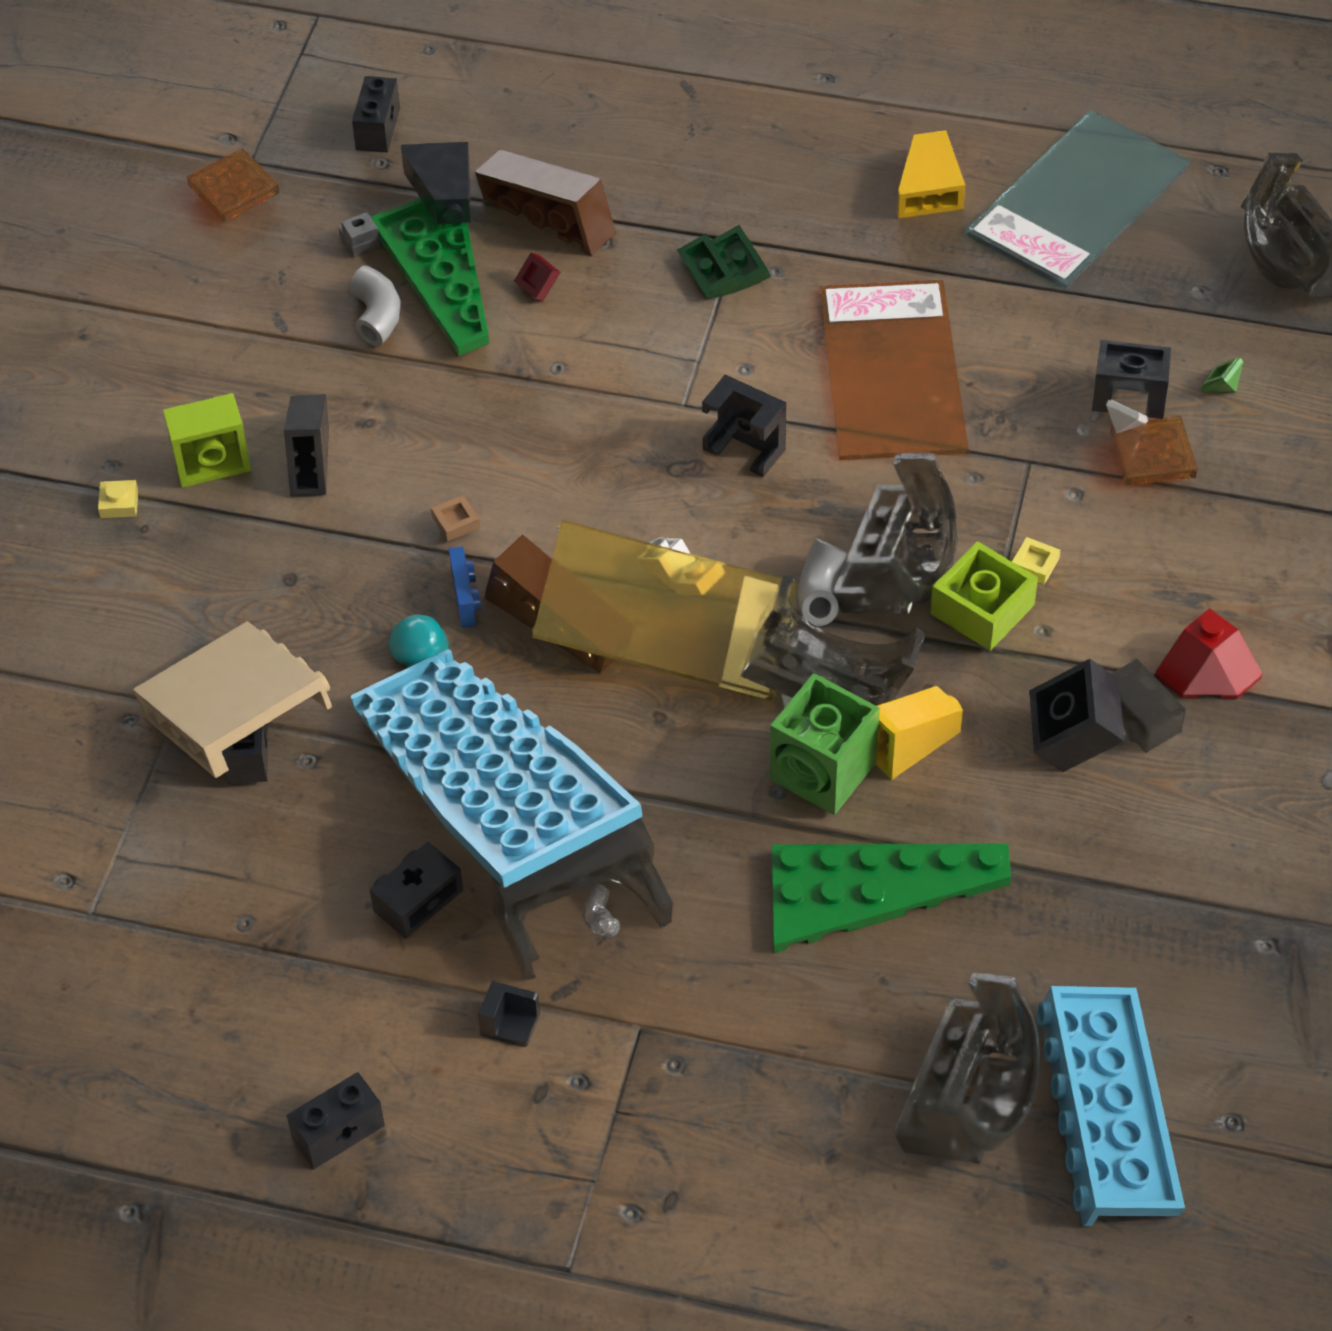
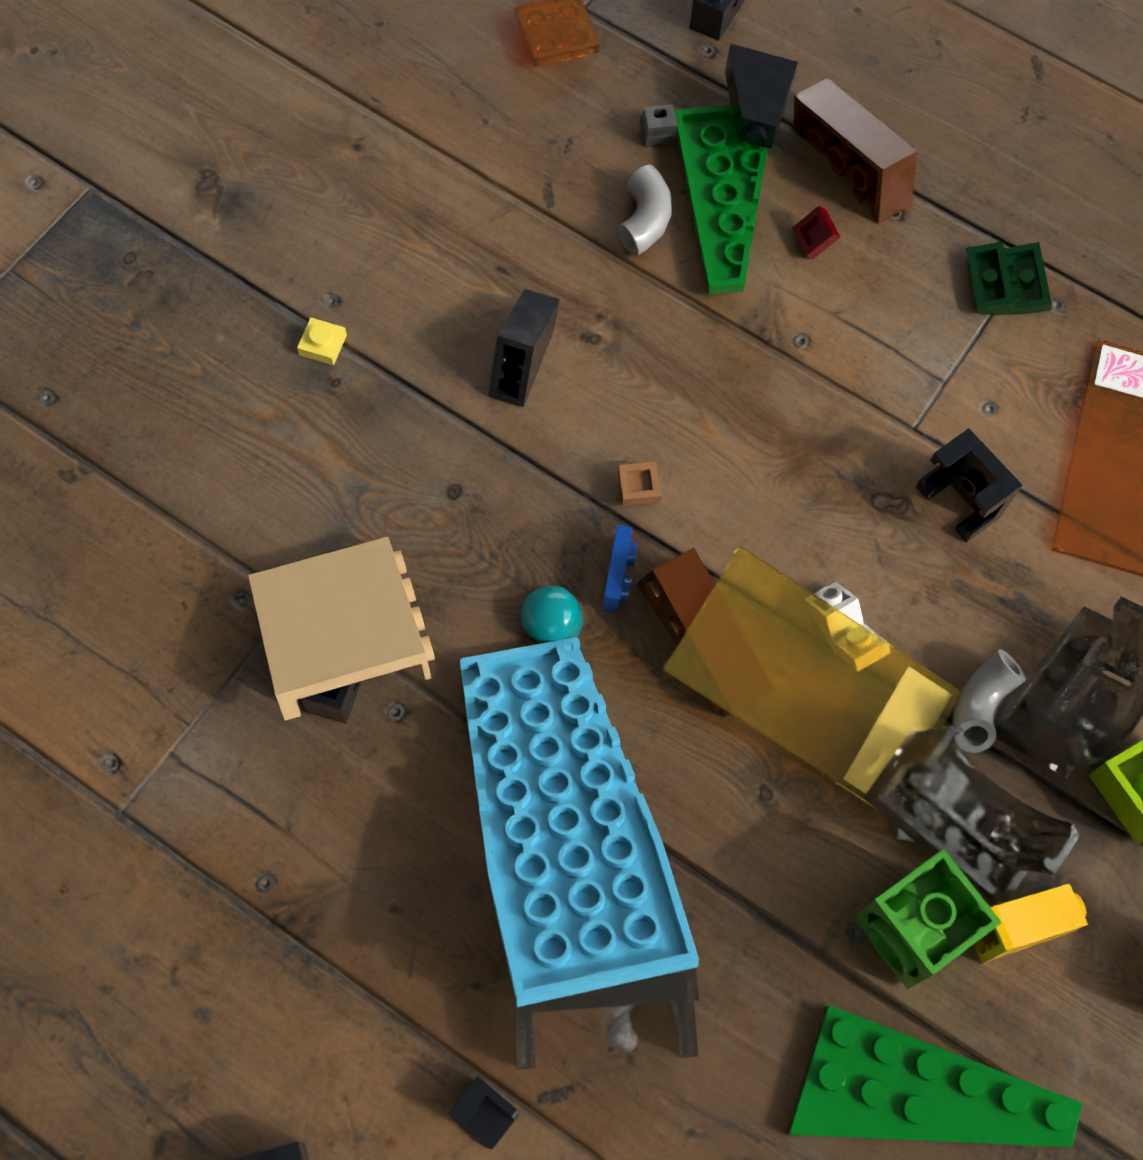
camera: 15 degrees right, 15 degrees up
(207, 440) = (424, 311): lime brick -> none
(416, 889) = (432, 938): black brick -> none

